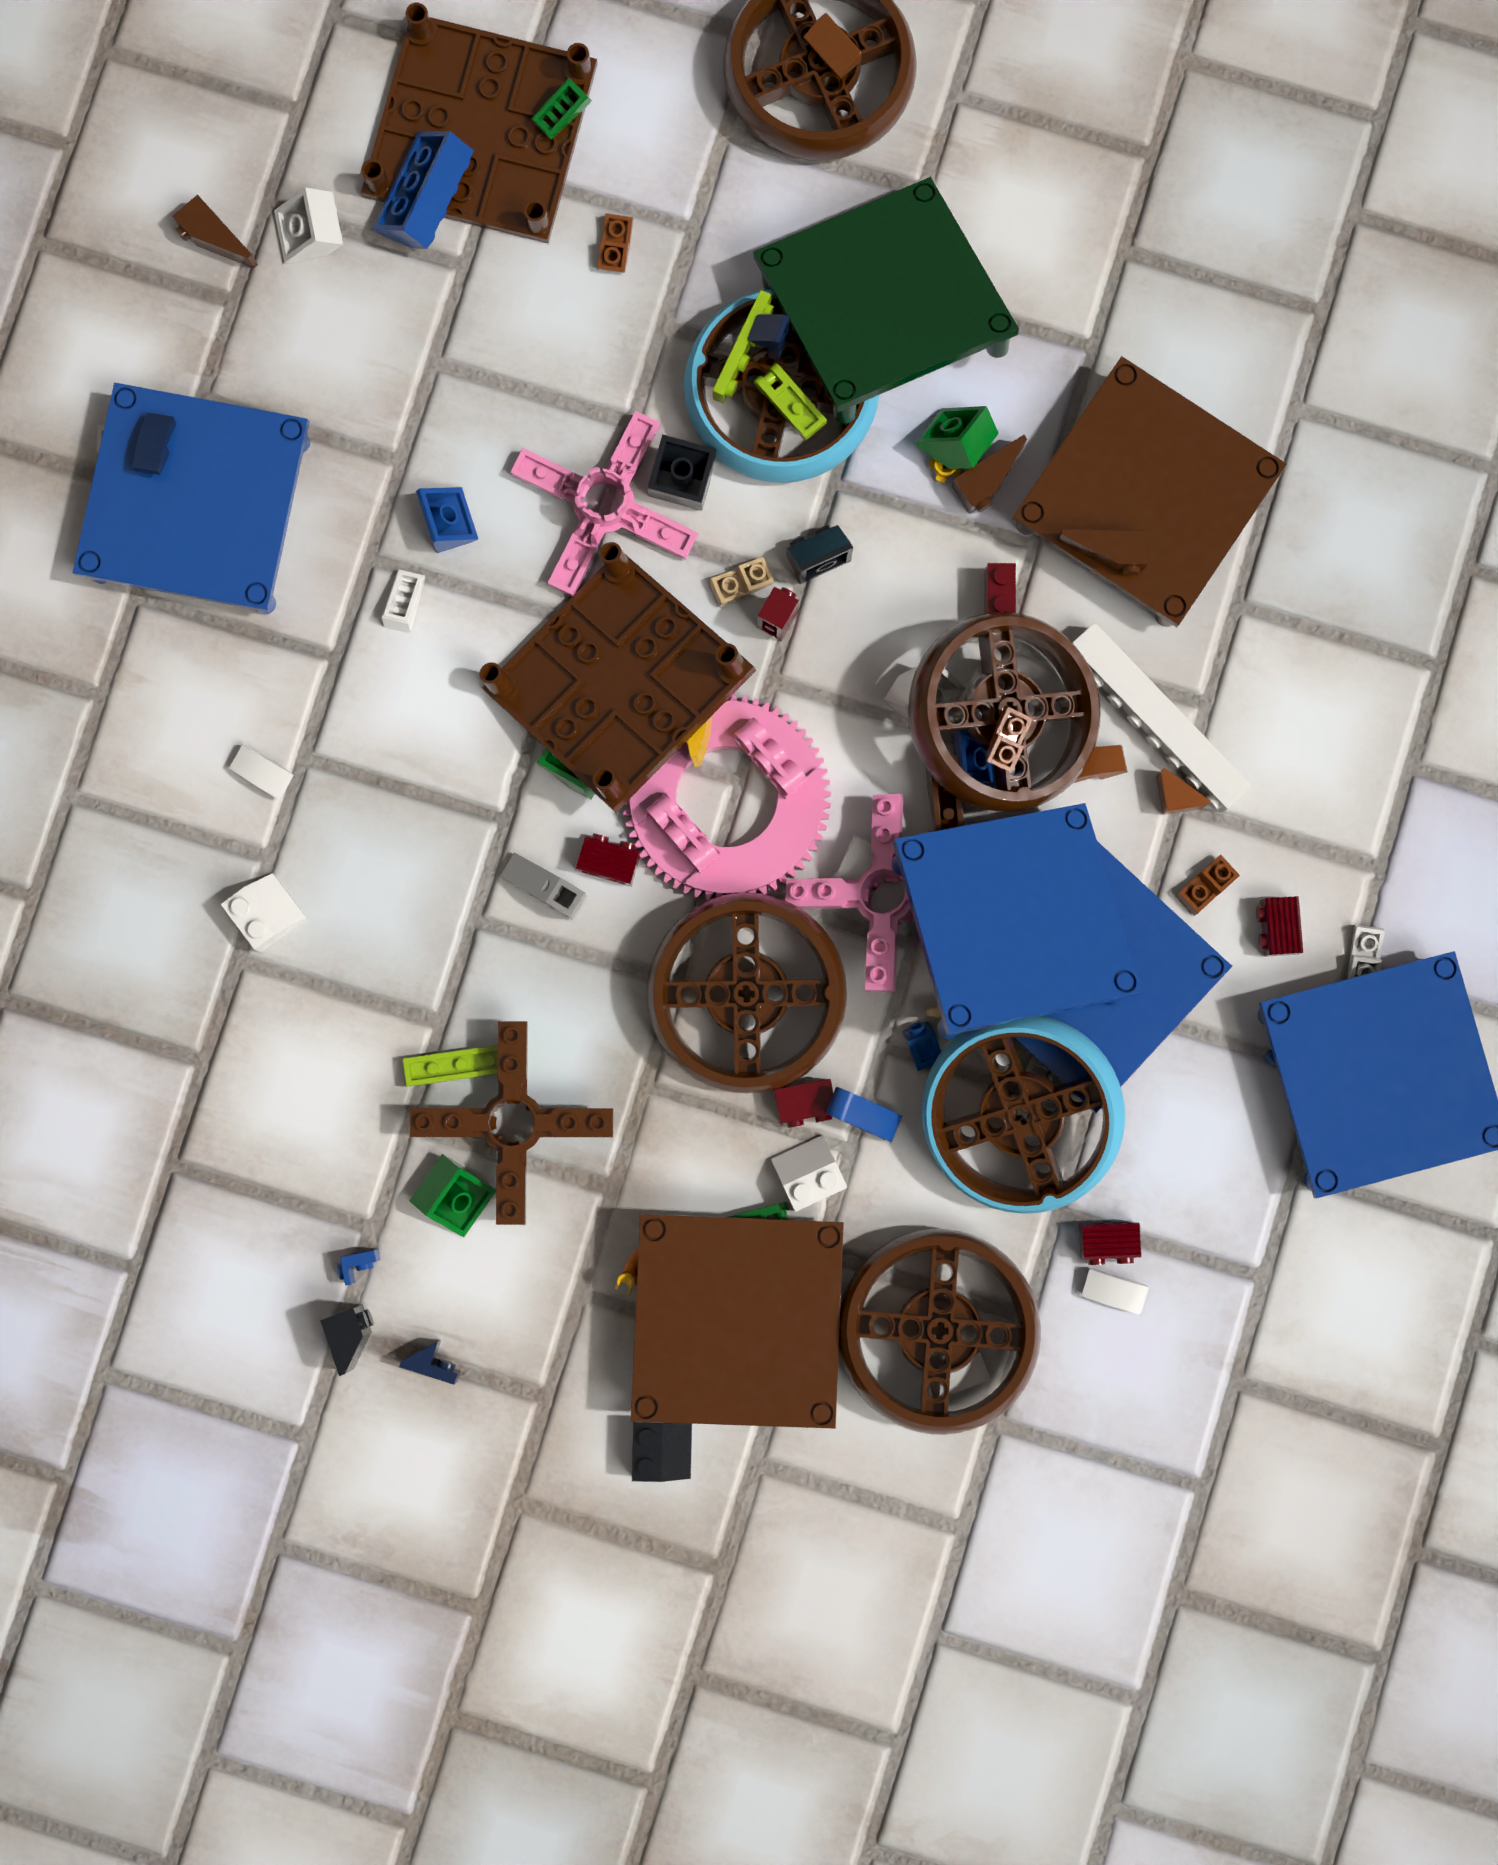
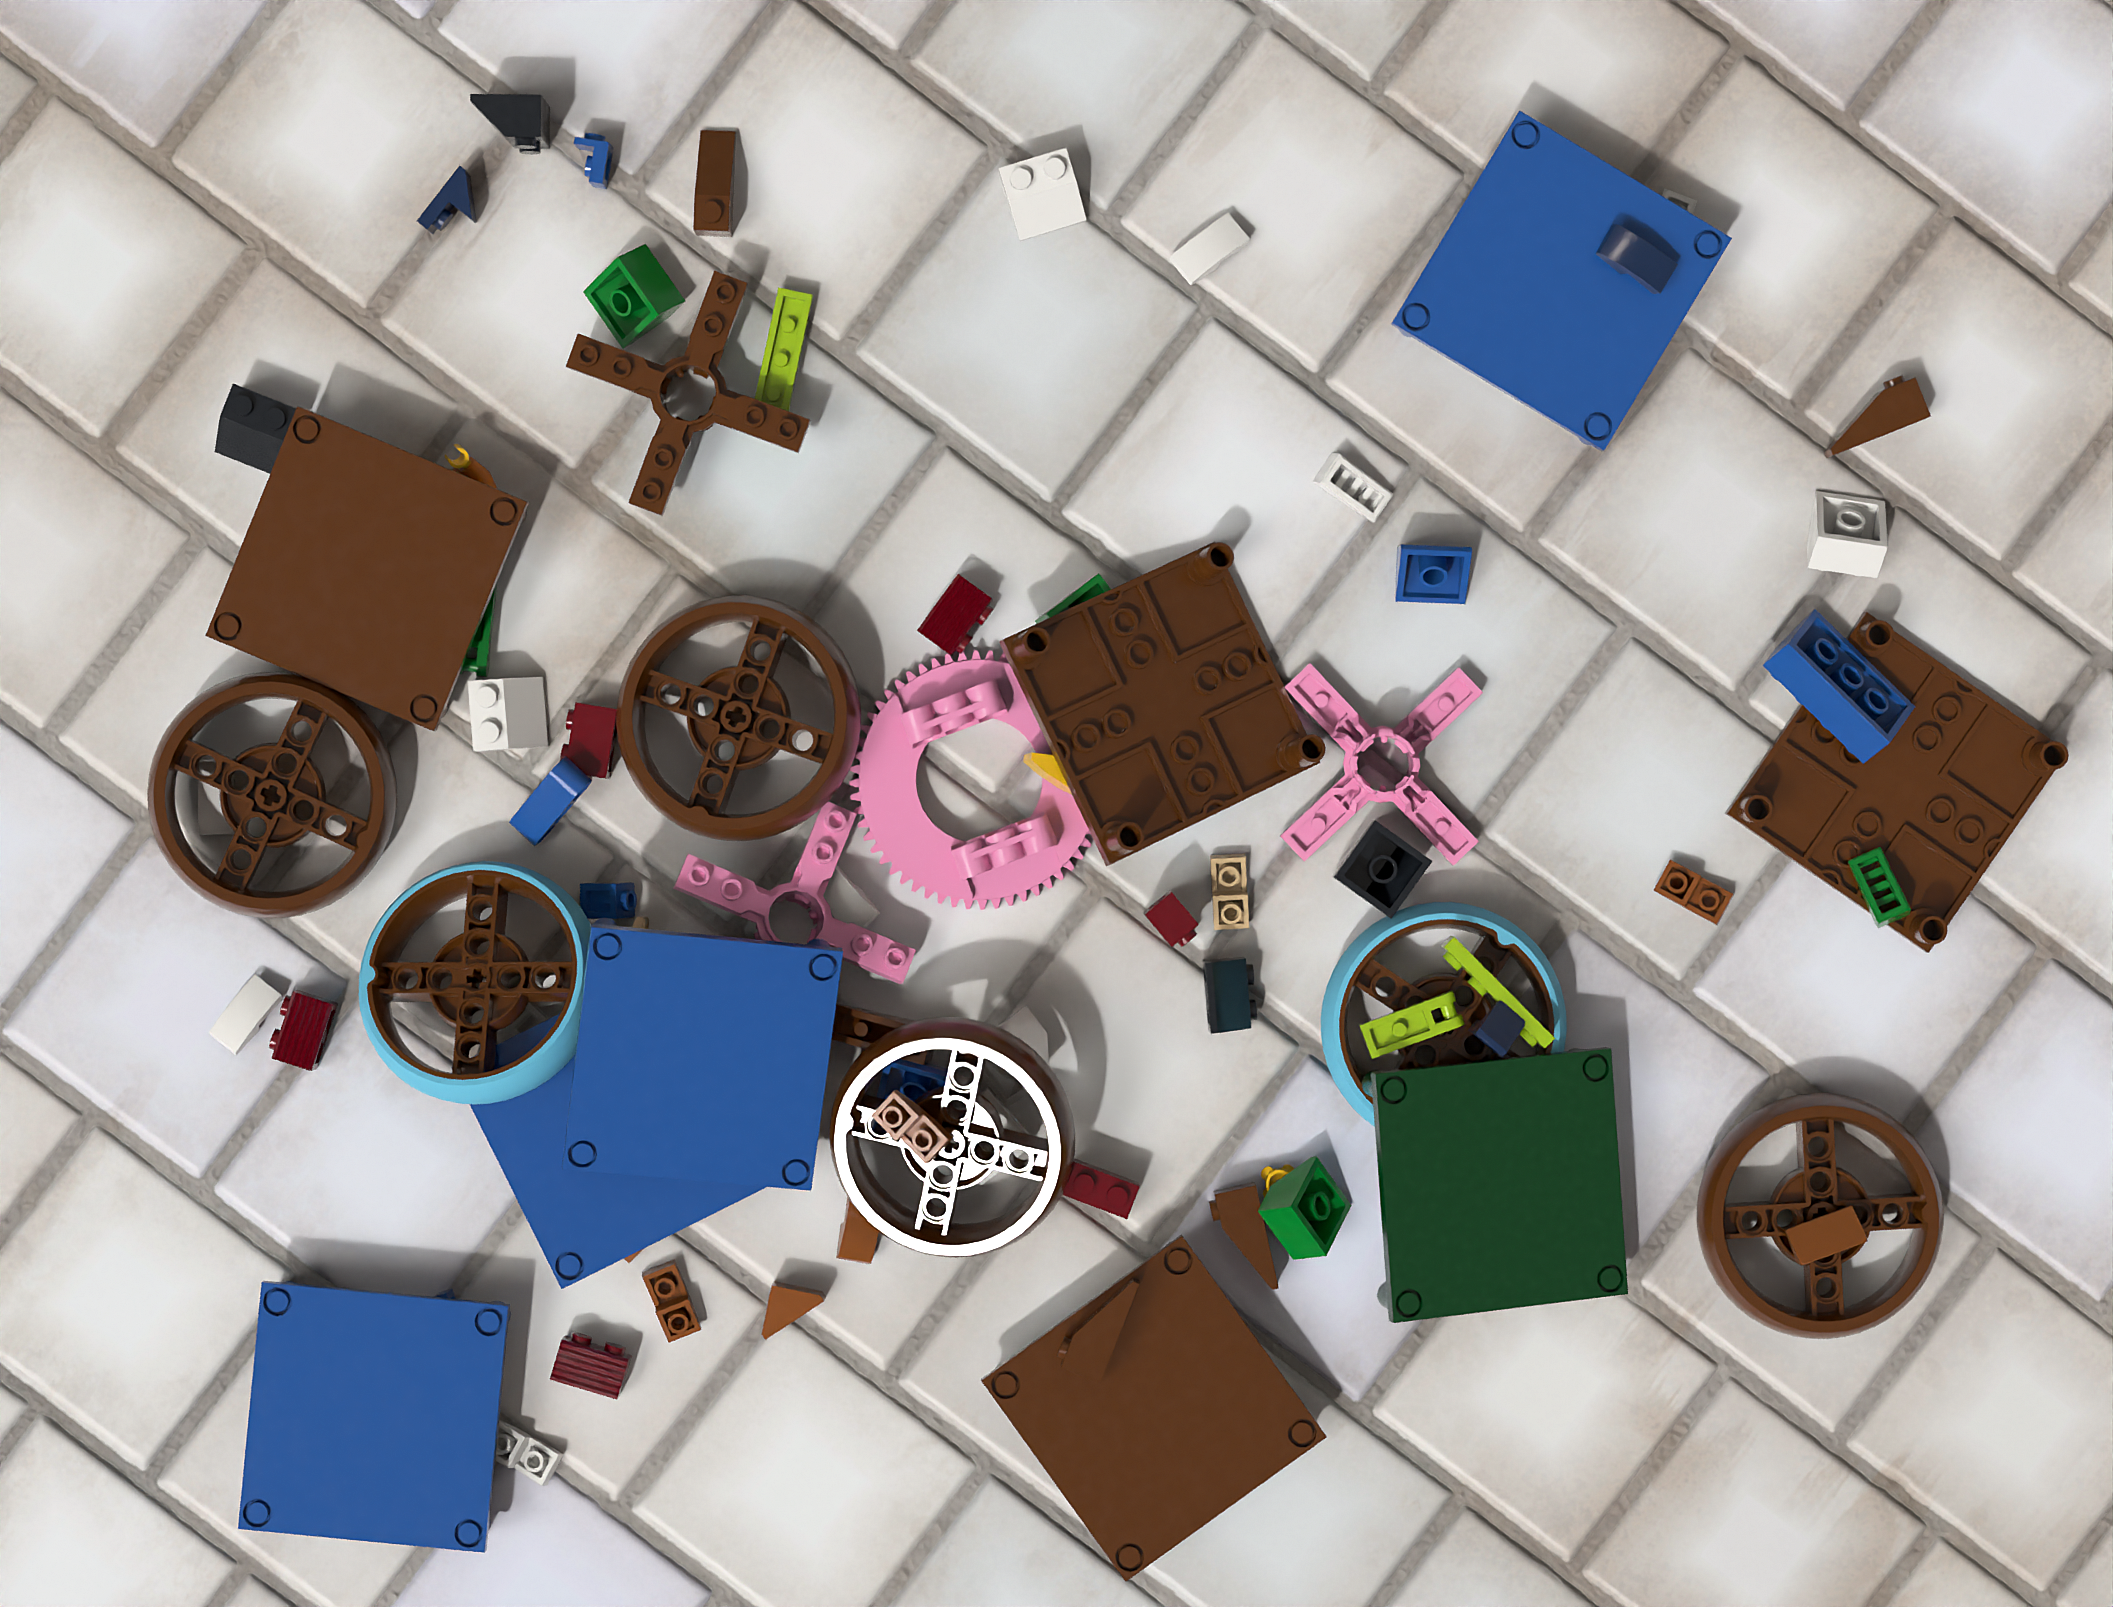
camera: 110 degrees right, 5 degrees up
(344, 1165) = (714, 184): none -> reddish brown slope
(544, 885) = (953, 529): light grey slope -> none
(1161, 720) = (885, 1318): white brick -> none

